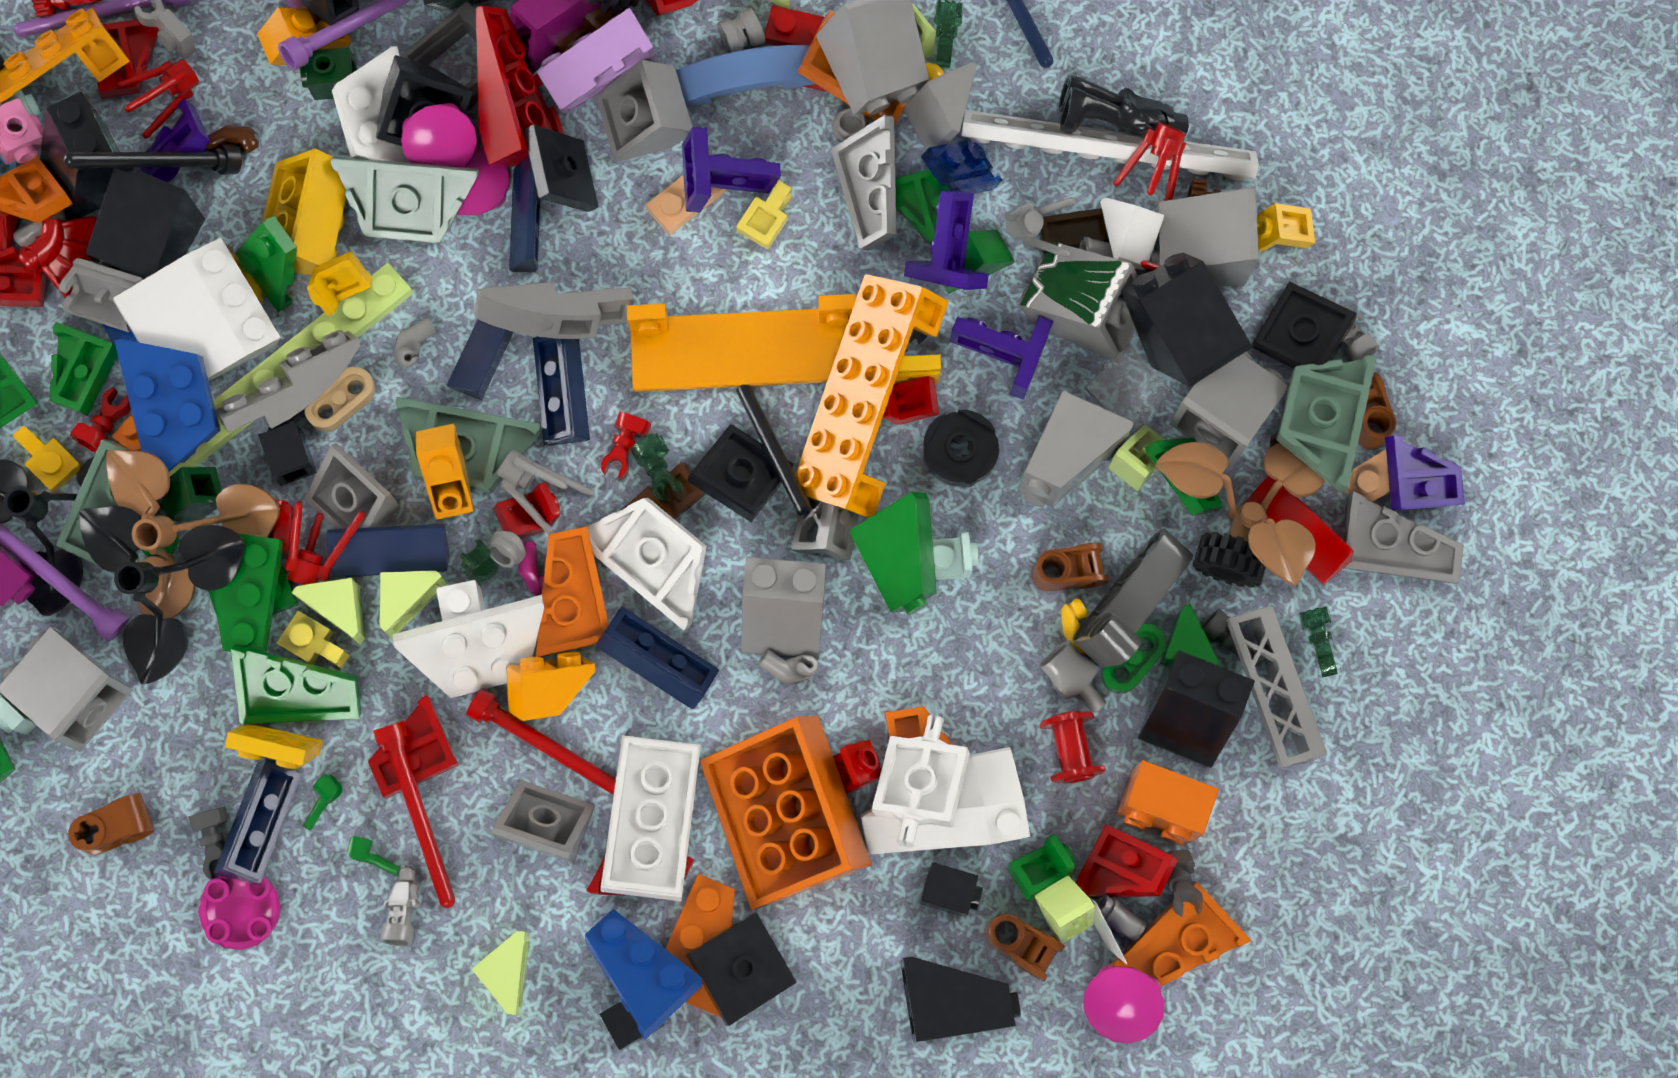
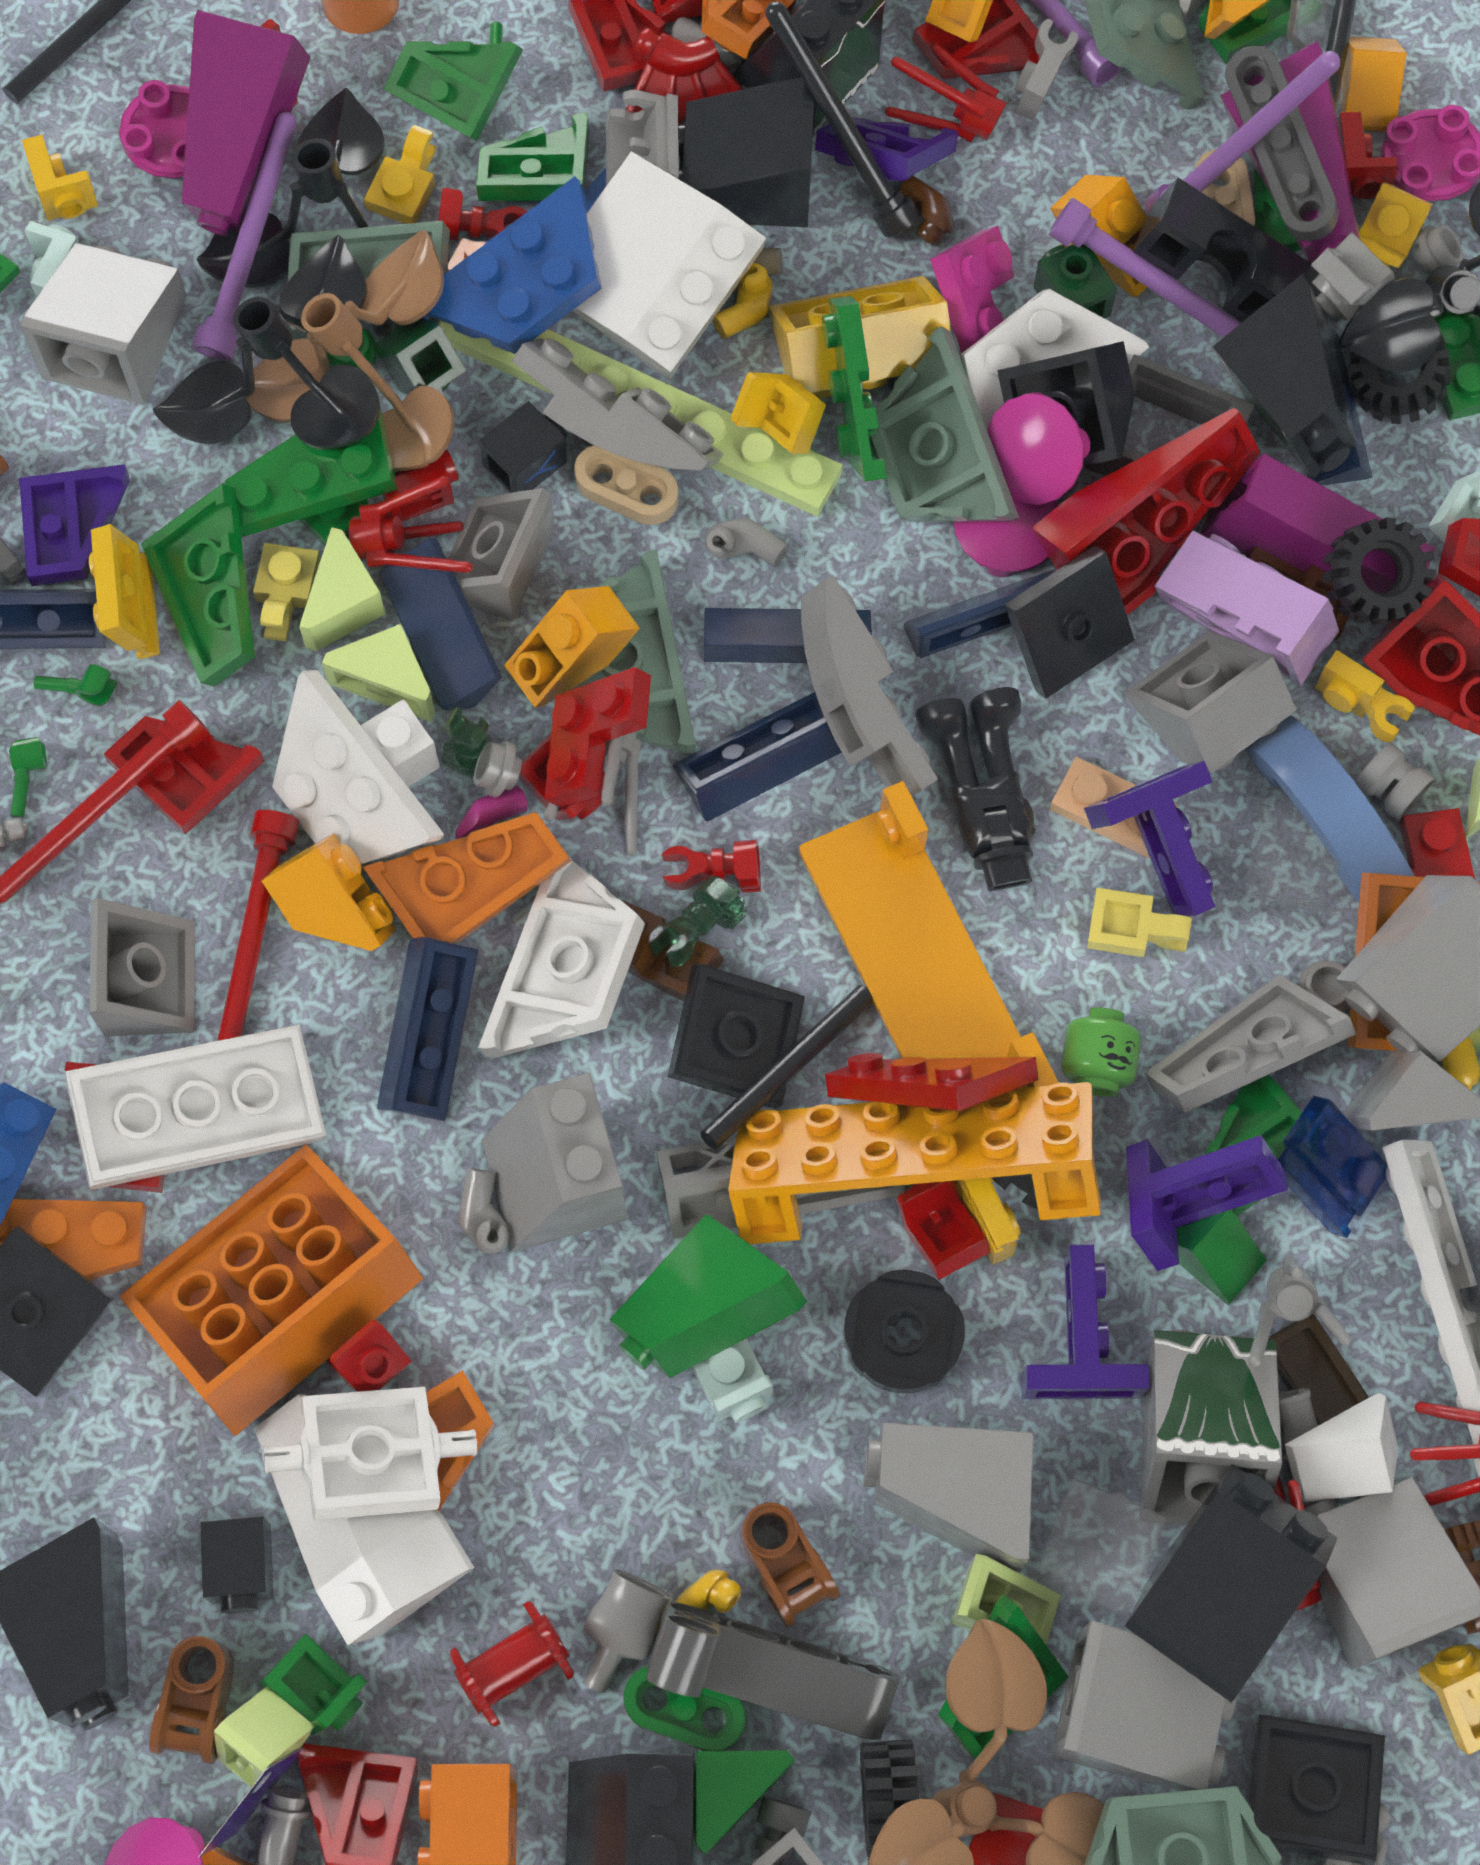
camera: 70 degrees right, 5 degrees down
(199, 767) = (59, 519): none -> dark purple wing
(269, 259) = (772, 316): green wing -> none
(297, 131) = (965, 280): none -> dark pink plate
(343, 231) = (845, 333): none -> green wing
(506, 483) = (583, 725): none -> red plate
(662, 266) = (992, 815): none -> black piece
(674, 27) = (1357, 690): none -> yellow plate
(824, 367) = (929, 1082): none -> red wing
(839, 266) = (1101, 1051): none -> bright green head

